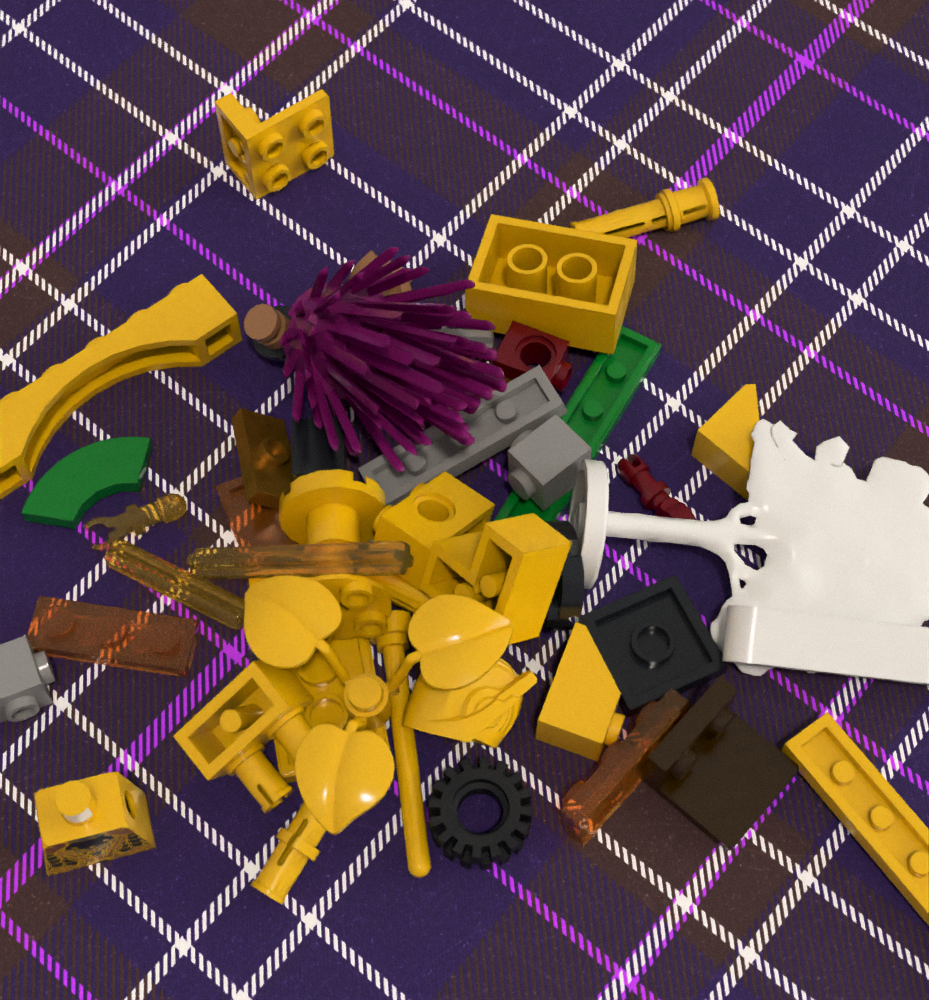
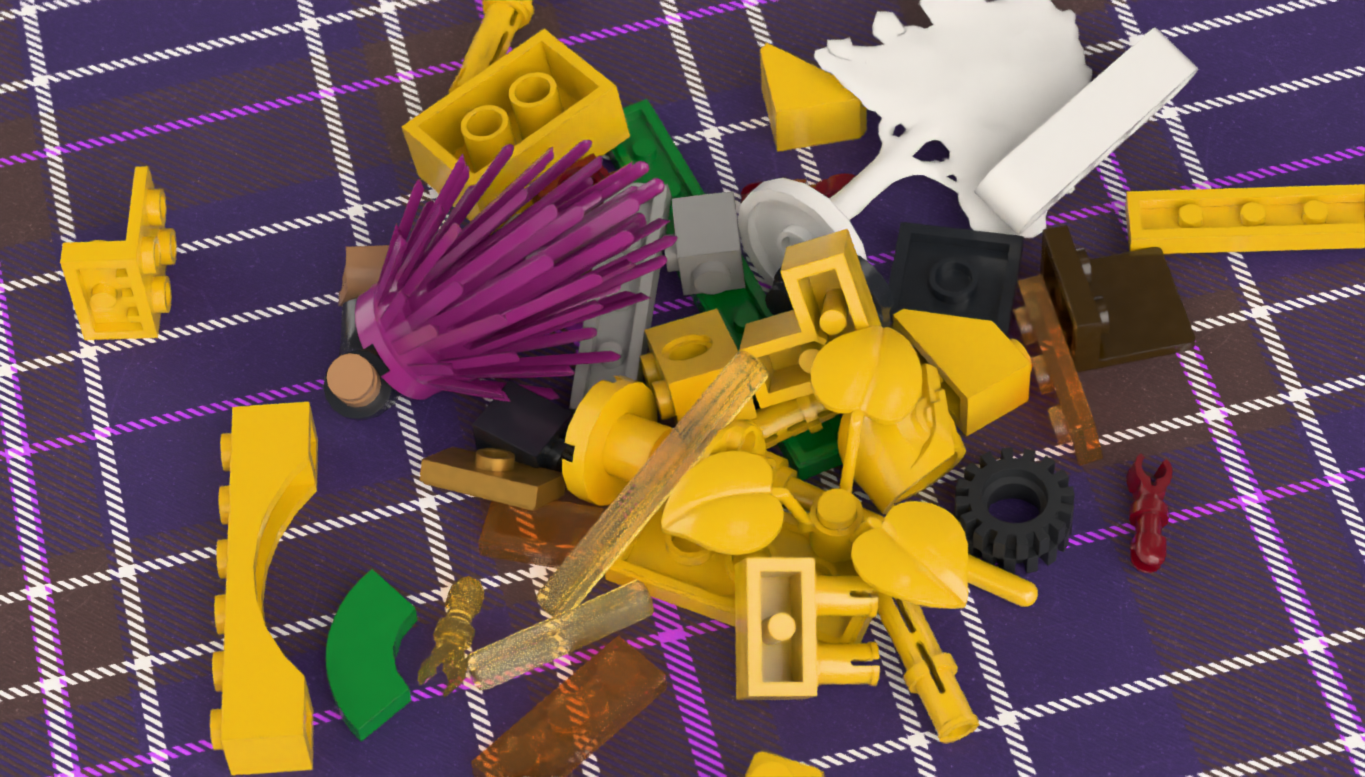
camera: 50 degrees left, 10 degrees down
(518, 929) = (1148, 515): none -> dark red piece

